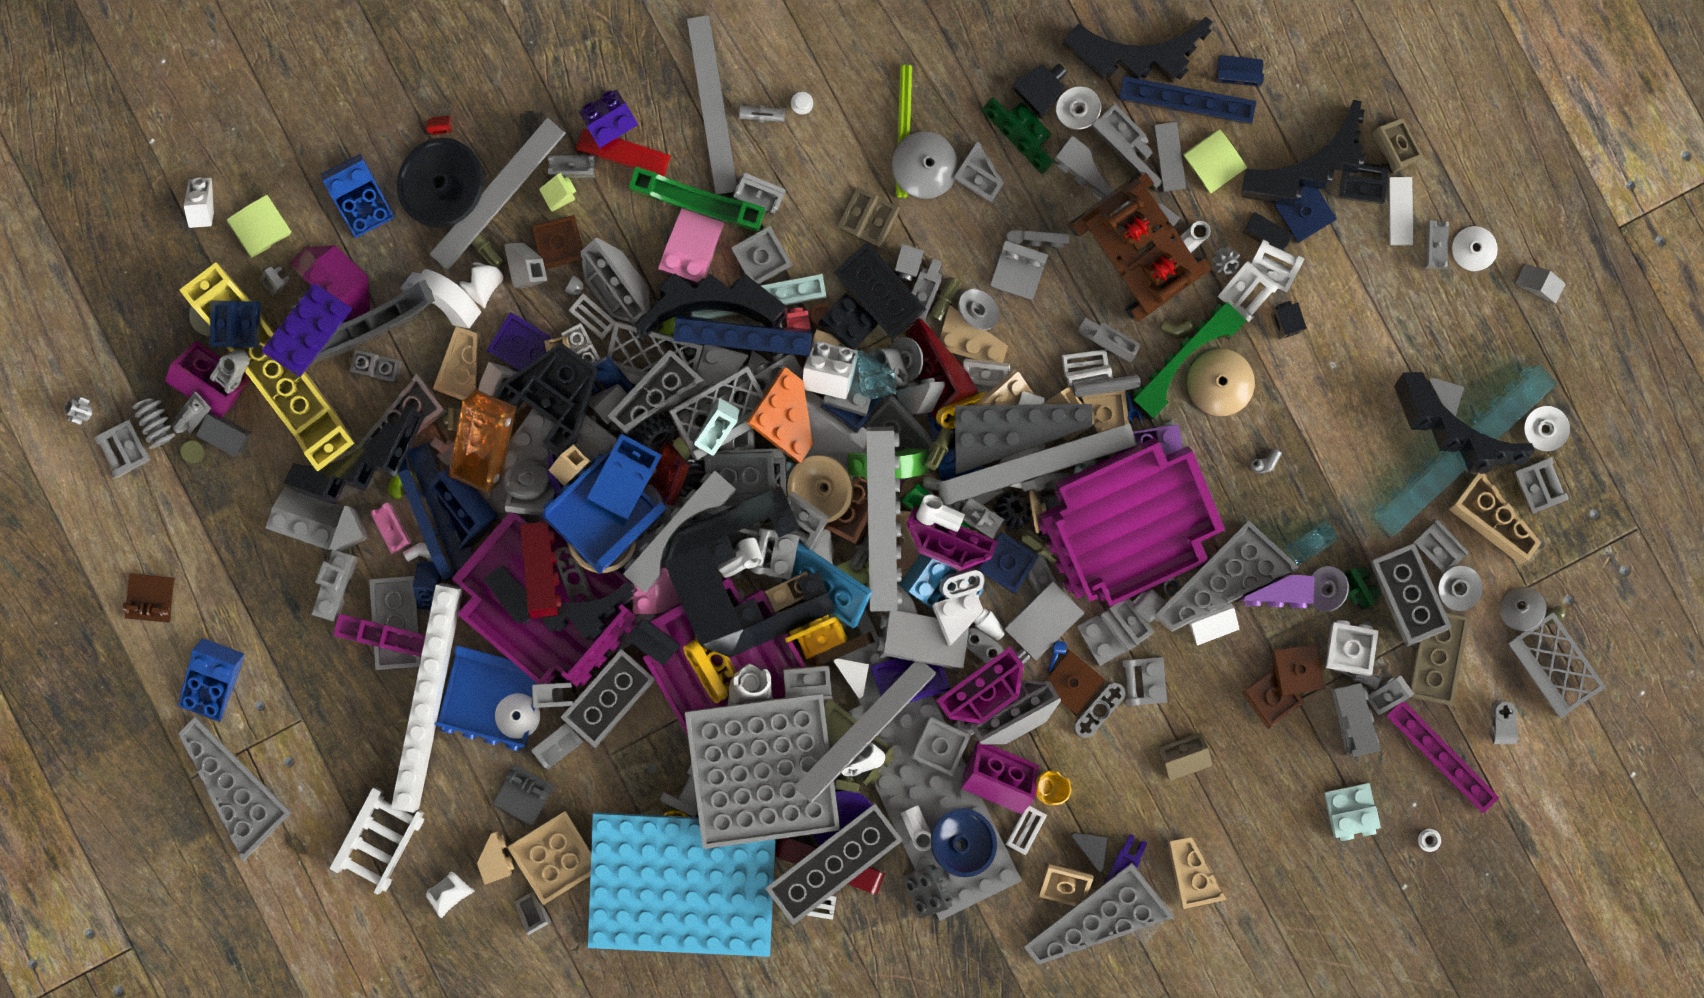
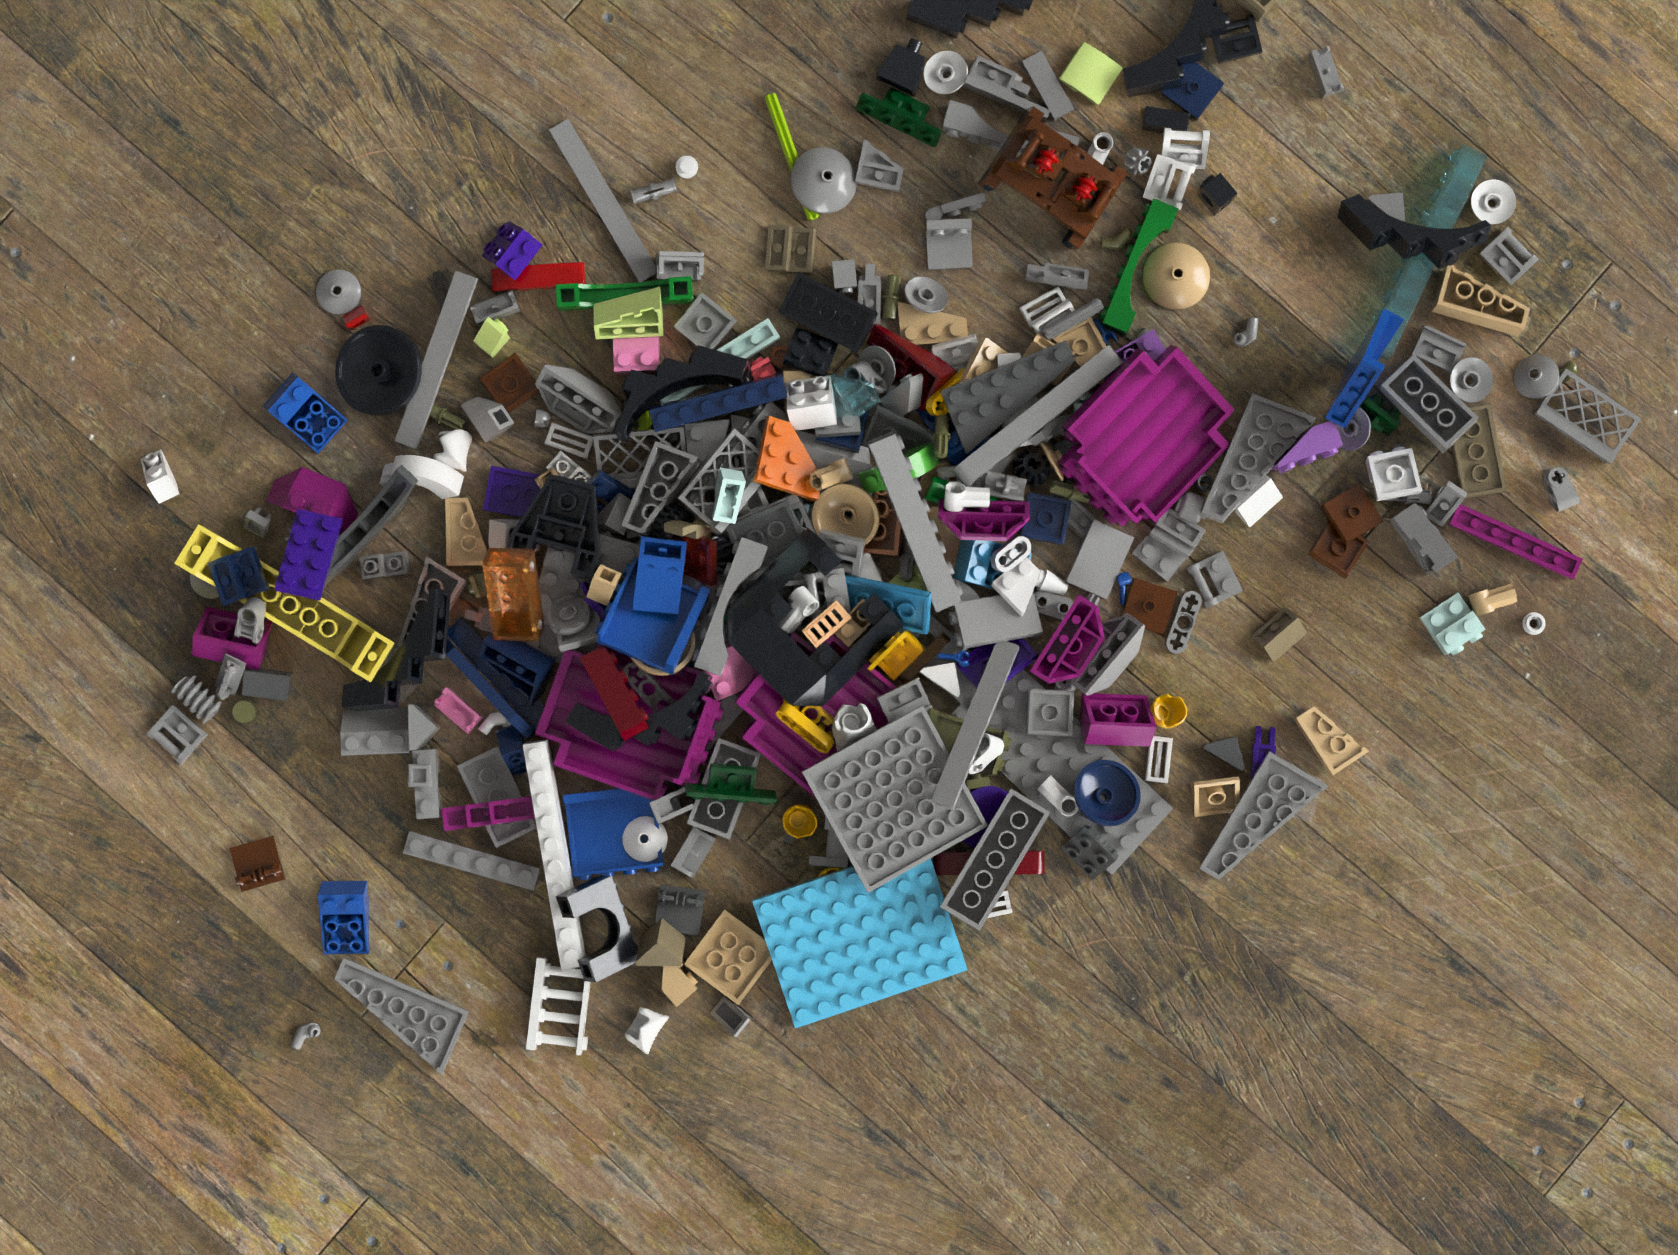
camera: 30 degrees left, 0 degrees up
(78, 409) = (121, 714): light grey gear -> none
(131, 771) = (303, 1032): none -> light grey arm
(258, 226) = (223, 477): yellowish green slope -> none
(348, 673) = (471, 860): none -> light grey plate
(395, 487) = (447, 670): lime arm -> none
(435, 105) = (349, 295): none -> light grey dish
(452, 809) = (619, 948): none -> arch
(492, 822) = (661, 946): none -> dark tan slope
(616, 697) = (731, 783): none -> dark green bracket
(653, 641) = (746, 718): black panel -> none
(666, 442) = (686, 529): none -> dark tan slope
(667, 756) = (799, 821): none -> yellow hair
(693, 223) = (630, 316): none -> yellowish green wedge
(744, 590) = (810, 635): none -> light nougat slope
(826, 444) = (833, 474): none -> tan piece
(873, 660) = (956, 657): none -> blue hand
(1187, 100) = (1043, 26): dark blue plate -> none
(1312, 542) = (1318, 391): clear light blue slope -> none
(1359, 539) = (1363, 369): none -> blue panel
(1392, 802) = (1487, 601): none -> tan piece
(1400, 211) = (1280, 53): white tile -> none
(1463, 248) = (1356, 71): white dish -> none
(1540, 282) = (1434, 70): light grey slope -> none

